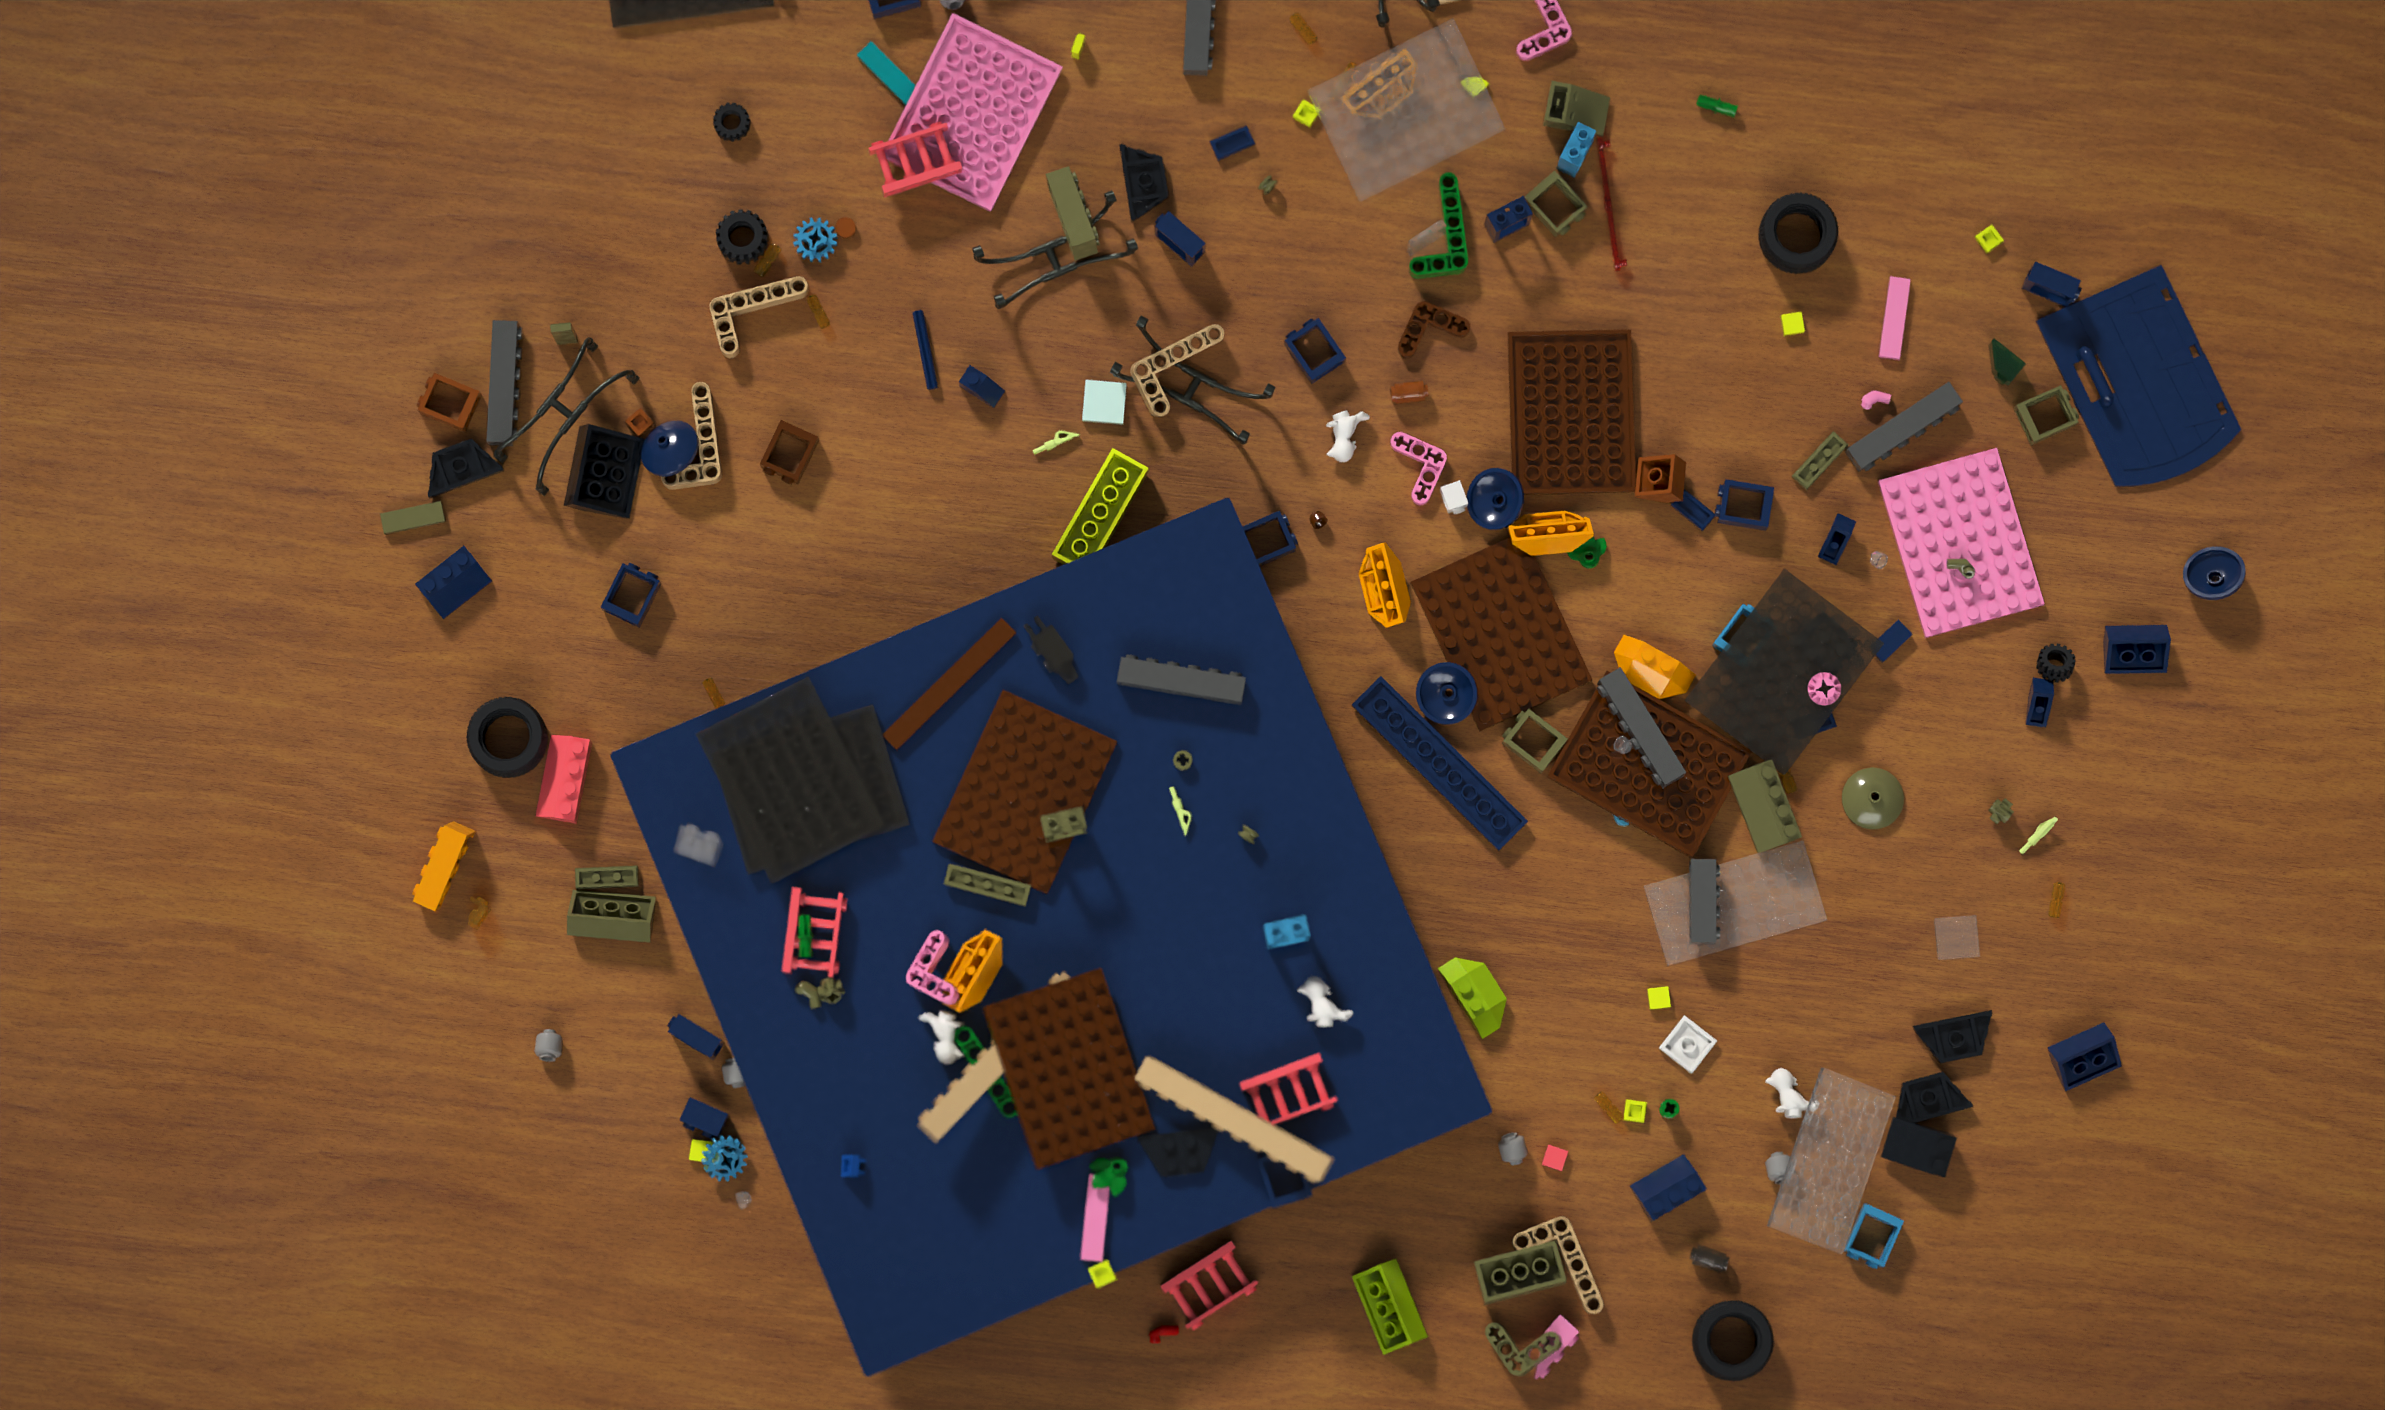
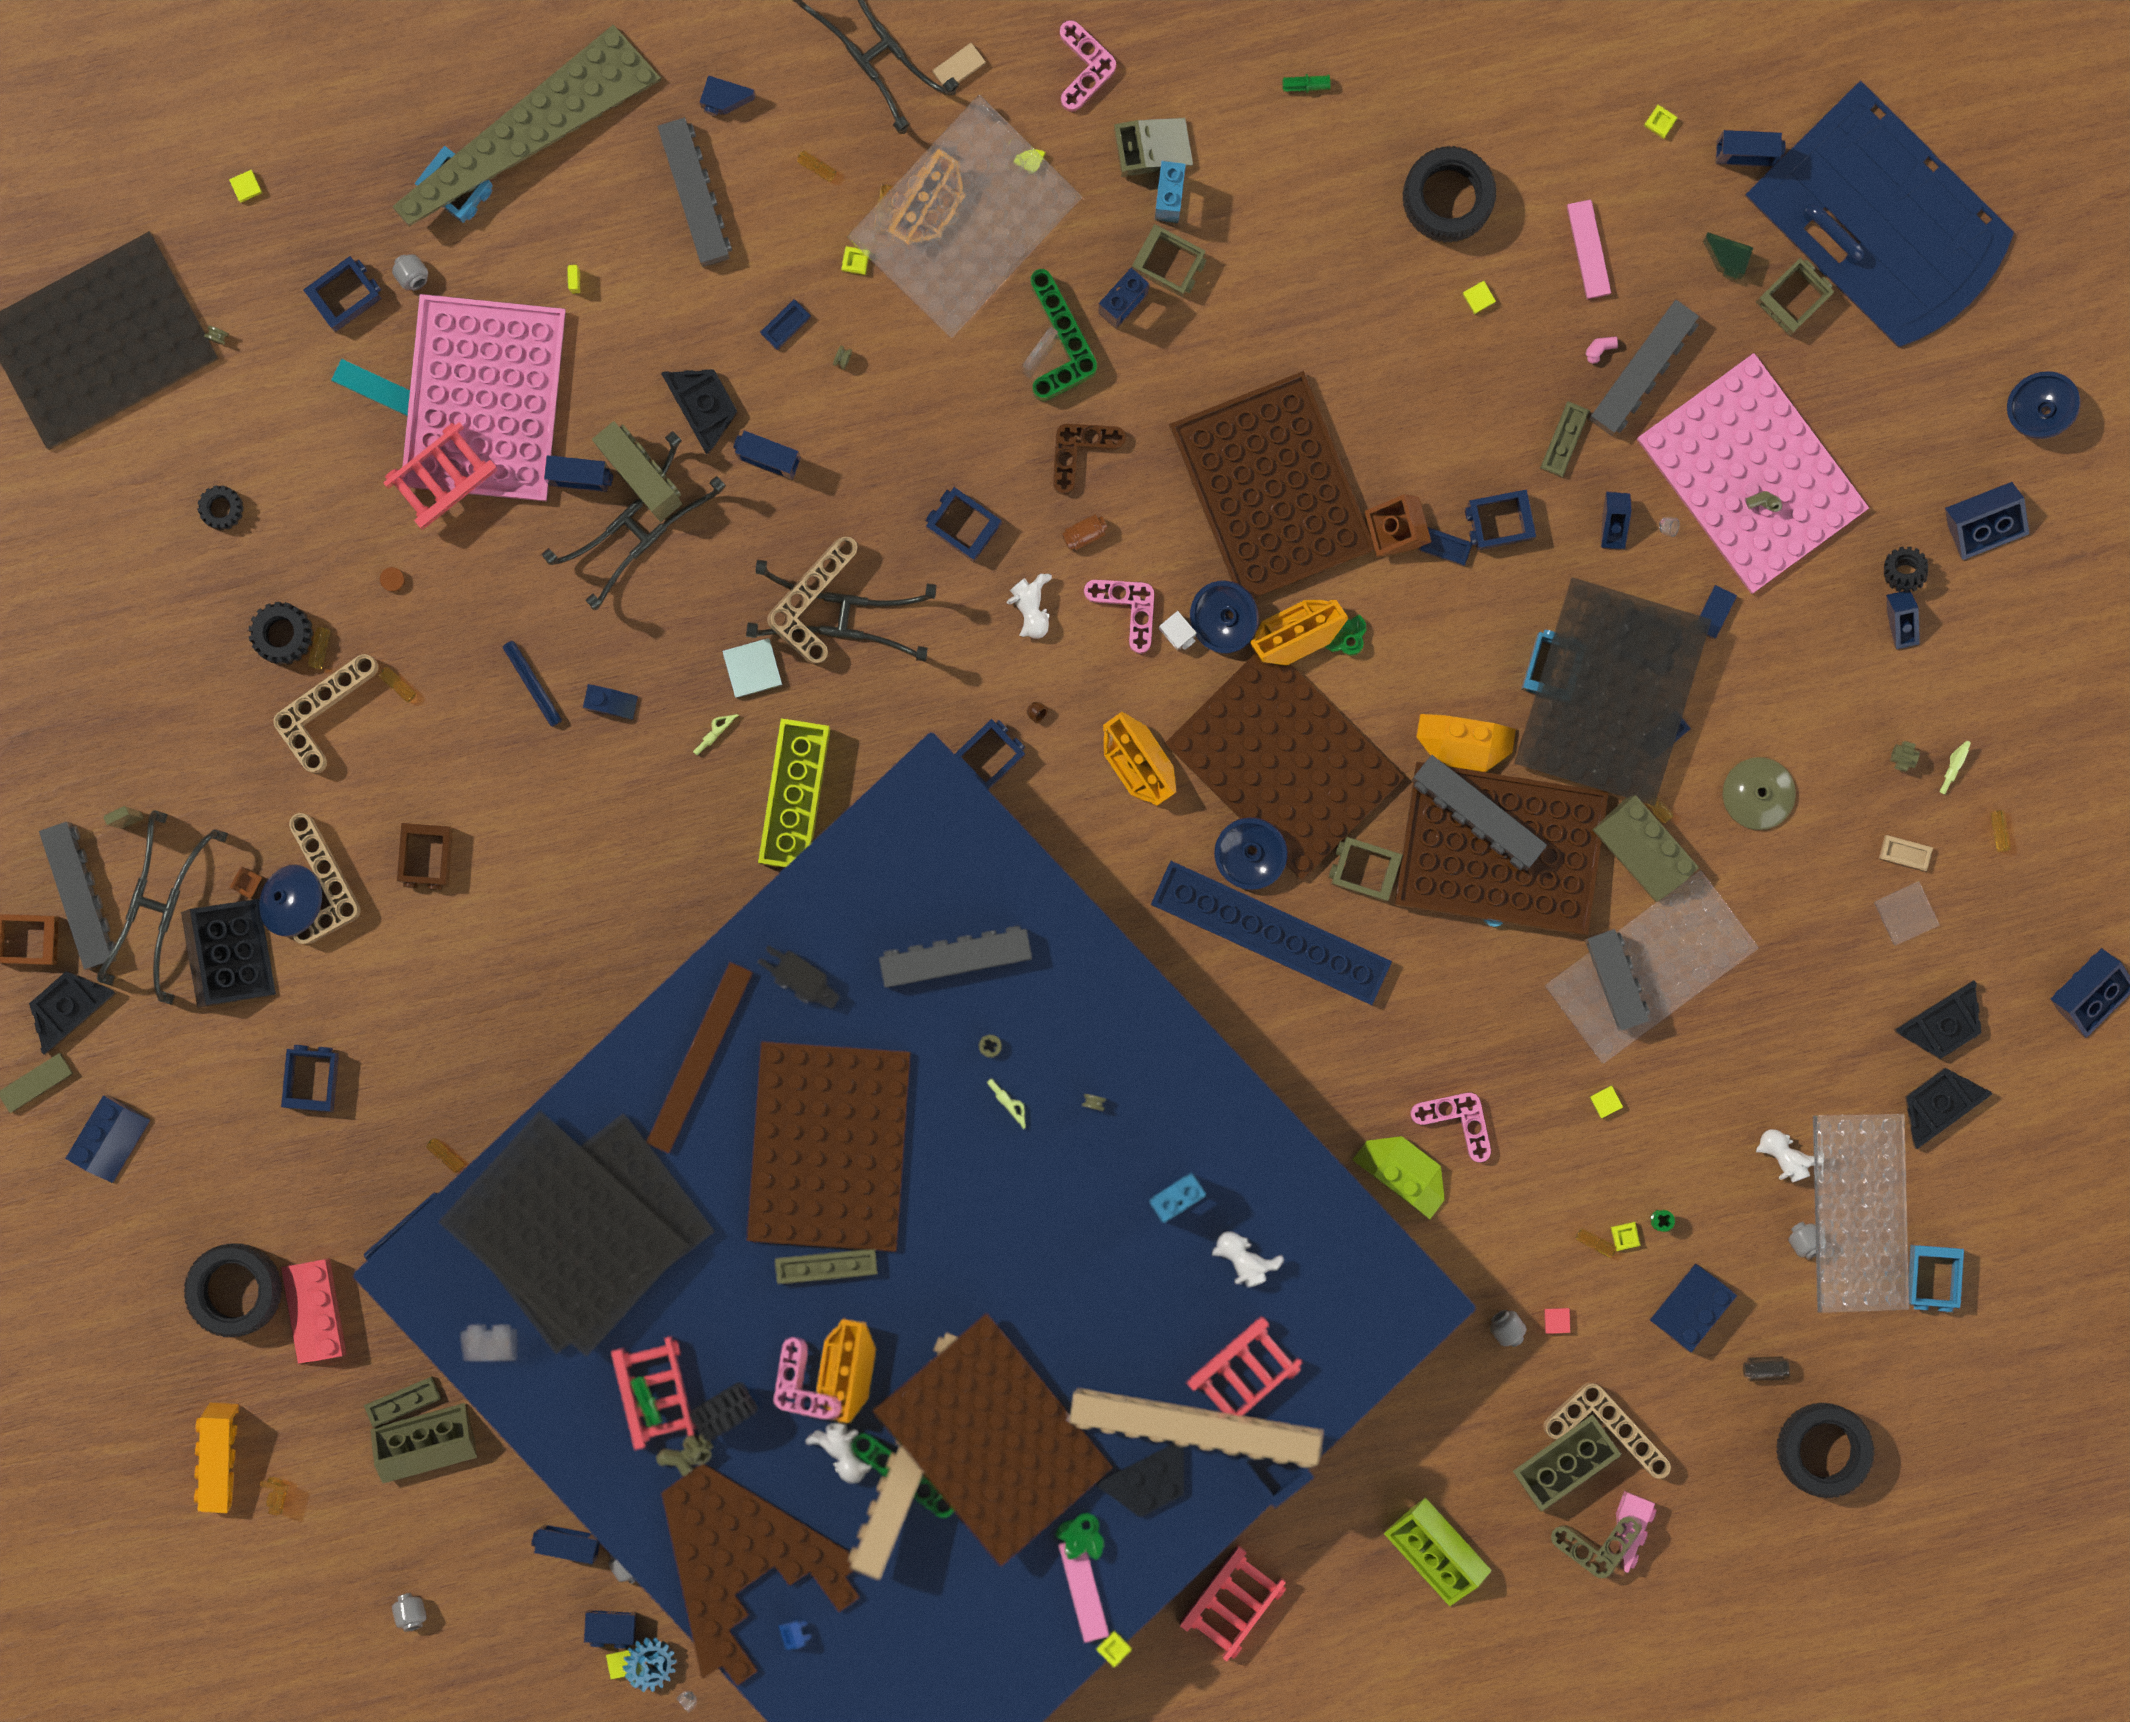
camera: 20 degrees left, 5 degrees up
(823, 240) = (374, 604): dark azure gear -> none
(824, 1074) = (726, 1542): none -> reddish brown wing
(863, 966) = (723, 1411): none -> black tyre
(1024, 198) = (577, 473): none -> dark blue window
(1061, 822) = (876, 1177): olive window -> none
(1163, 1330) = (1200, 1671): red arm -> none
(1542, 968) = (1465, 1115): none -> bright pink beam
(1601, 145) = (1261, 301): clear red piece -> none
(1622, 745) = (1465, 839): clear hinge -> none
(1687, 1044) = (1656, 1141): white tile -> none
(1819, 697) = (1653, 692): bright pink gear -> none
(1919, 1147) = (1951, 1161): black slope -> none
(1973, 889) = (1905, 853): none -> tan tile

